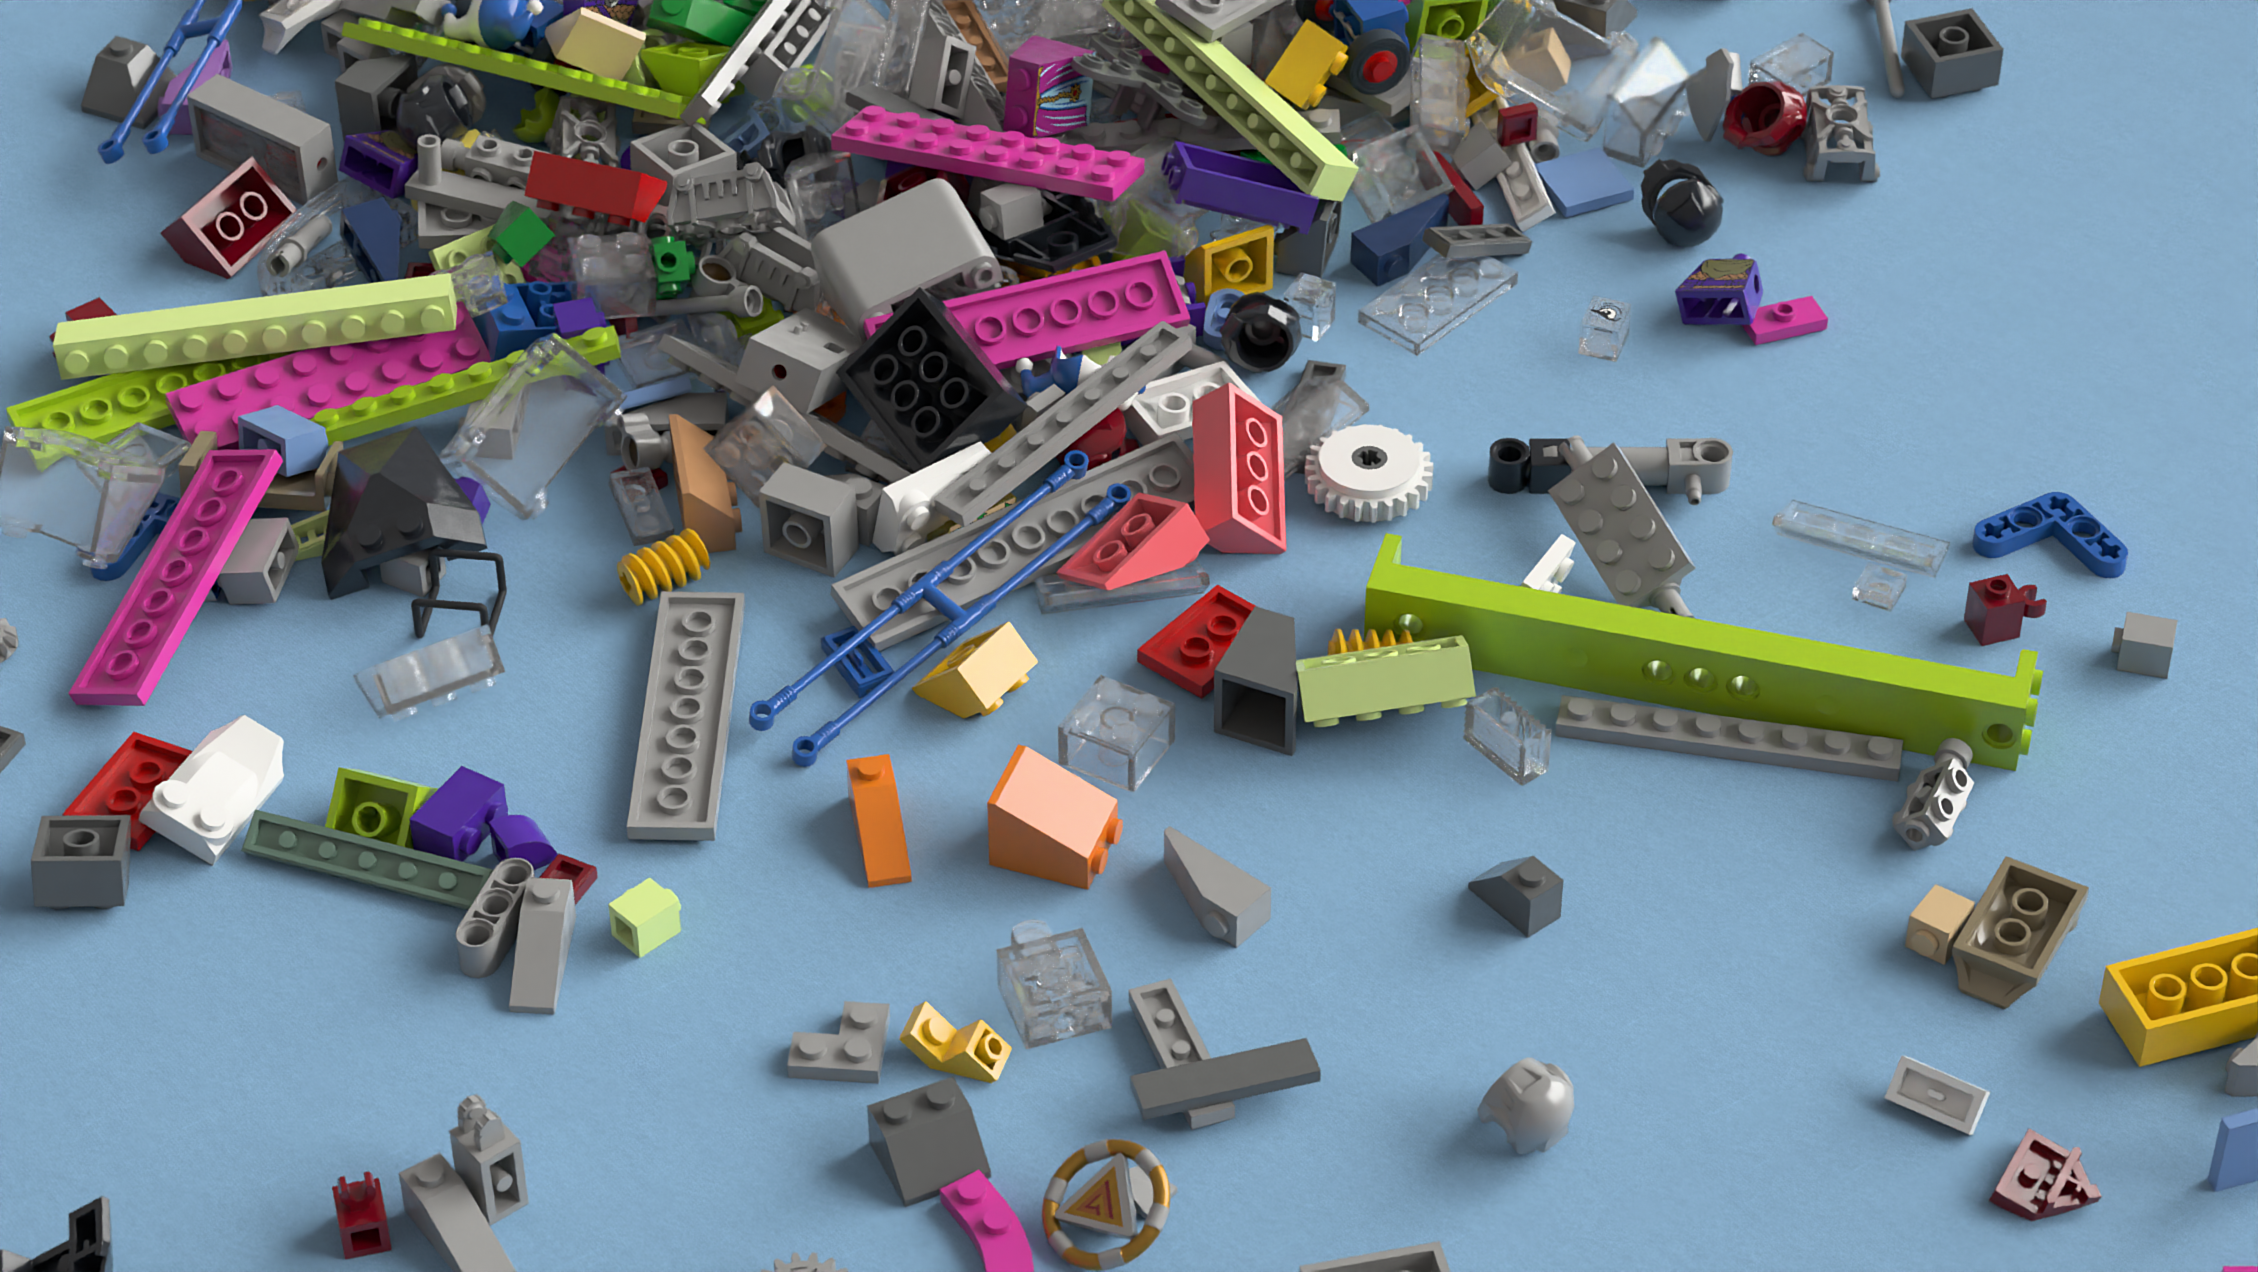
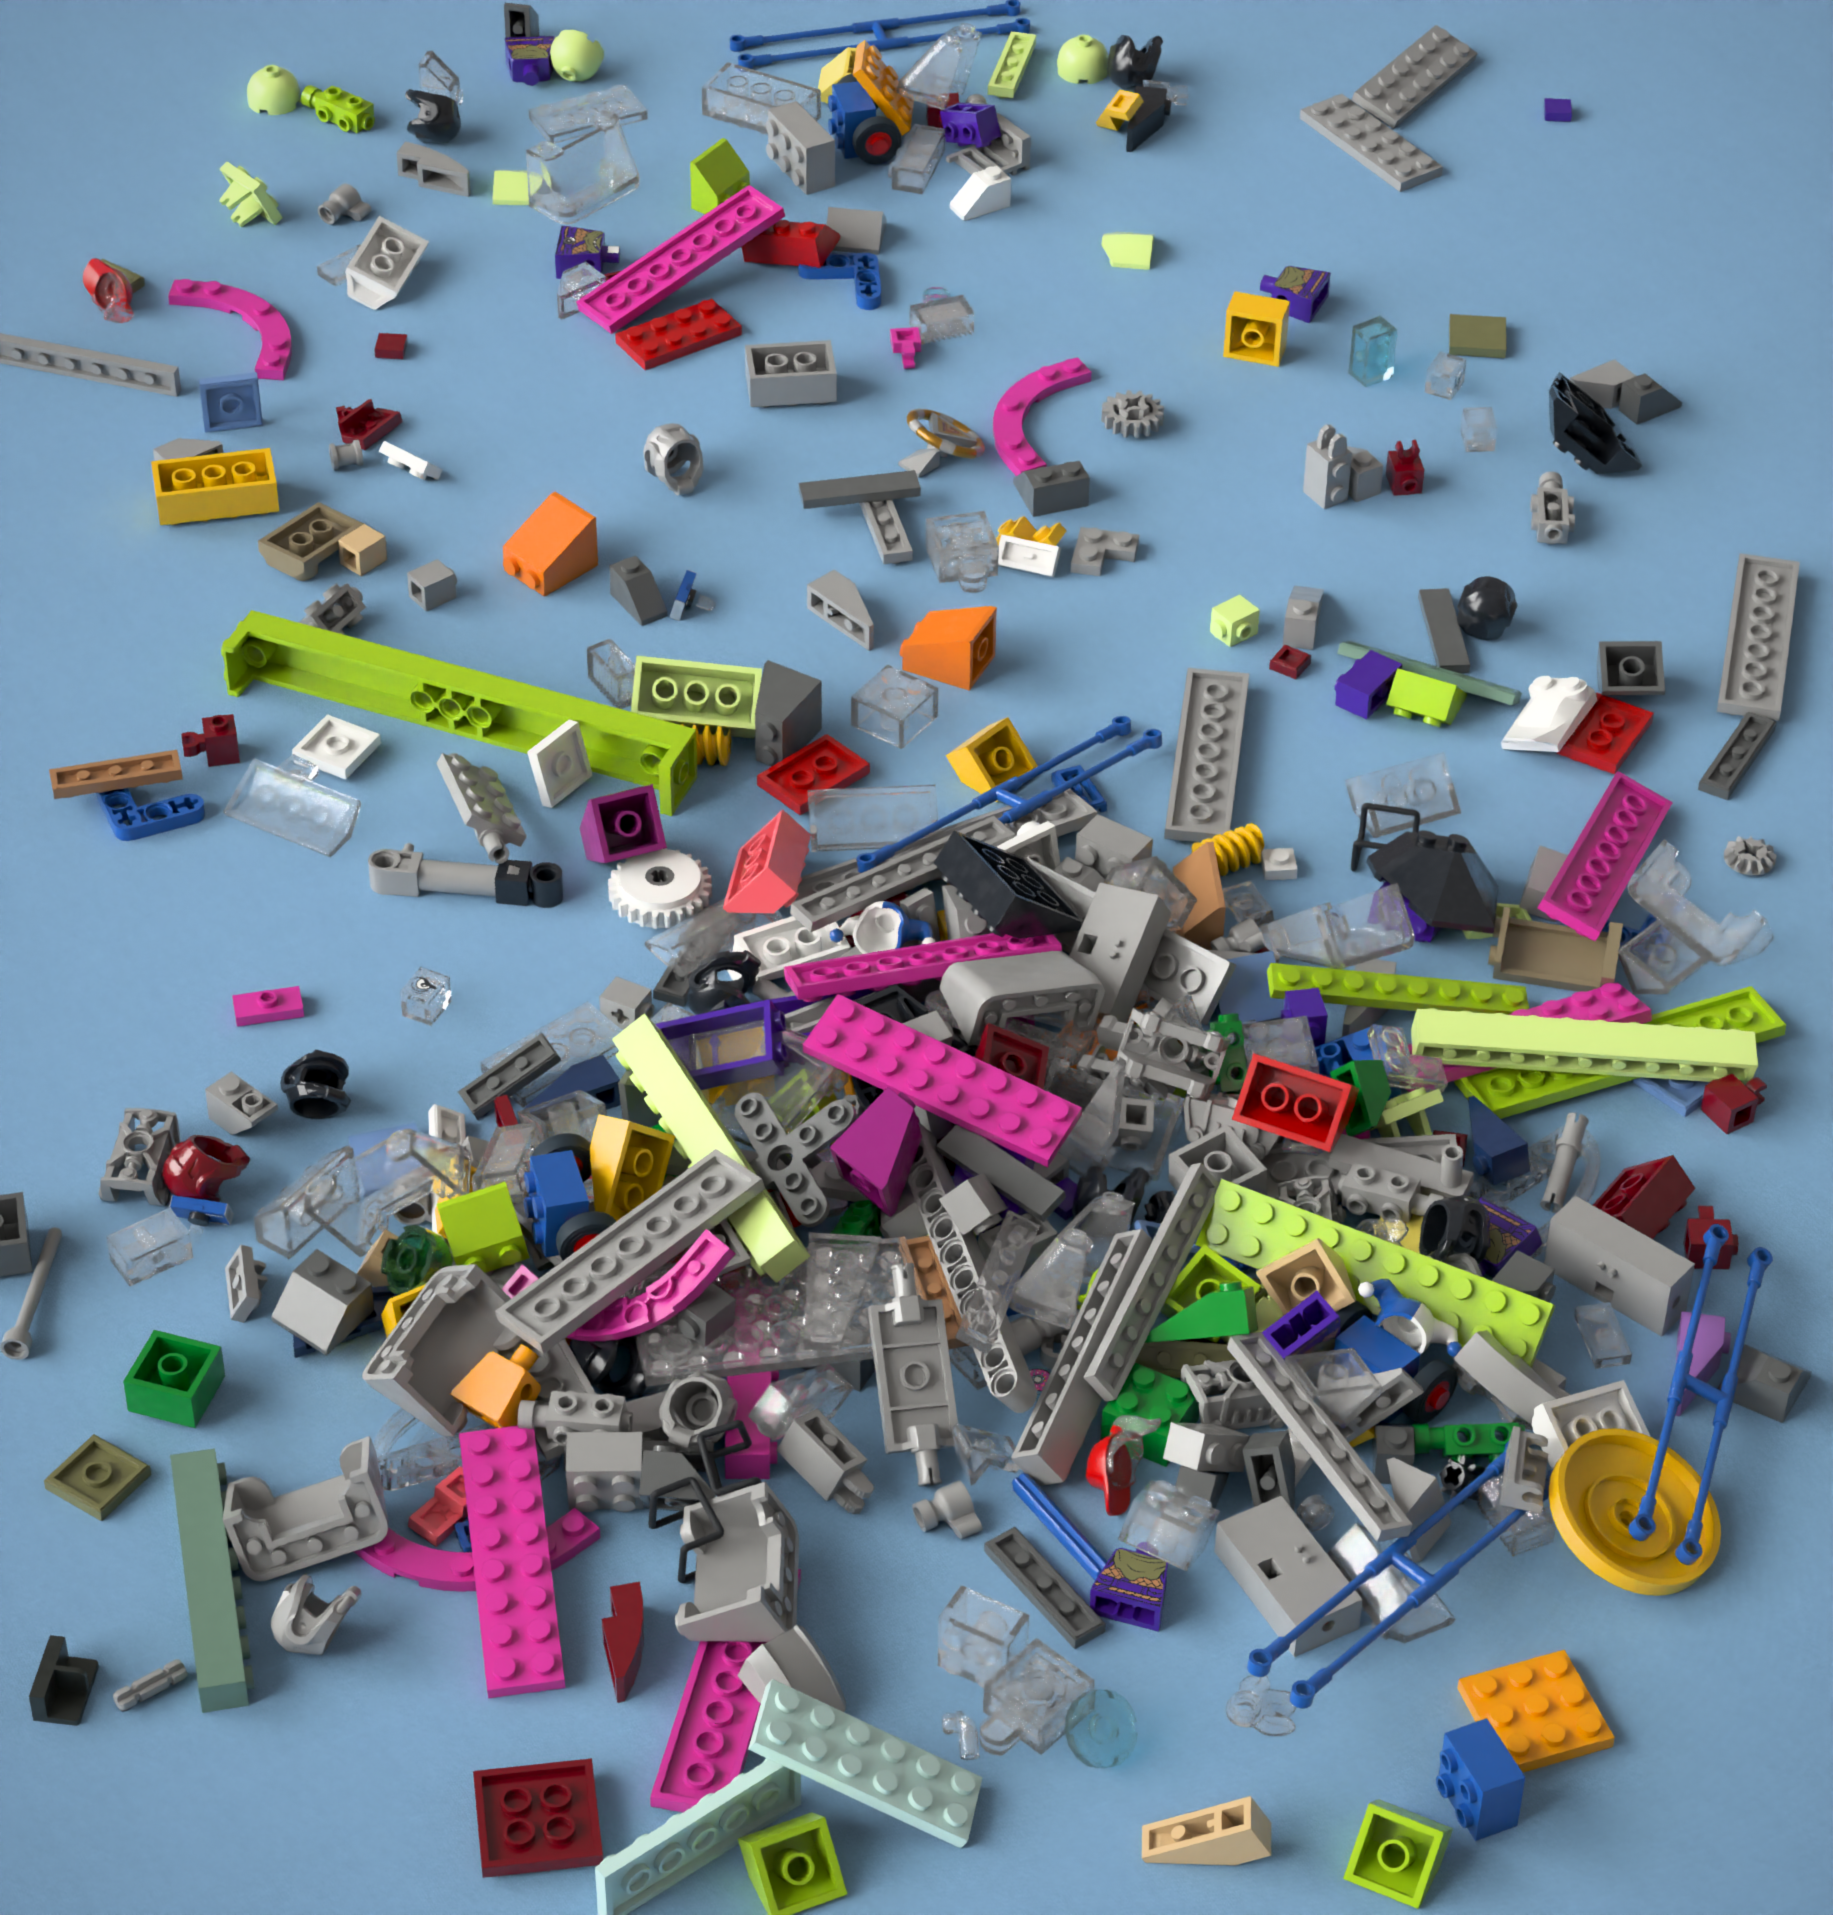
camera: 175 degrees left, 0 degrees up
(137, 1152) = (1552, 510): none -> light grey brick
(156, 194) = (1695, 1246): none -> dark red brick
(275, 926) = (1486, 608): none -> black helmet
(295, 438) = (1544, 967): medium blue brick -> none
(338, 948) = (1443, 630): none -> dark grey tile
(493, 919) = (1336, 626): light grey beam -> none
(520, 838) = (1320, 674): dark purple brick -> none
(598, 583) = (1279, 864): none -> white plate
(878, 820) = (1072, 675): orange slope -> none
(970, 1007) = (1028, 555): none -> white plate
(1138, 543) = (860, 819): coral slope -> none
(1370, 337) = (625, 1002): none -> light grey brick
(1431, 488) = (622, 825): none -> magenta slope
(1446, 895) = (686, 597): none -> piece
(1659, 936) = (552, 546): none -> orange slope
(1676, 41) = (244, 1283): none -> light grey plate
(1711, 90) = (245, 1191): light grey panel -> none
(1721, 292) = (314, 1011): dark purple torso -> none
(1759, 191) = (237, 1104): none -> light grey slope
(1816, 874) = (432, 585): none -> light grey brick
(1845, 619) = (337, 746): none -> white plate
(2042, 1100) = (345, 454): none -> light grey bush
(2098, 535) = (115, 774): none -> medium nougat plate
(2145, 644) = (121, 711): light grey brick -> none

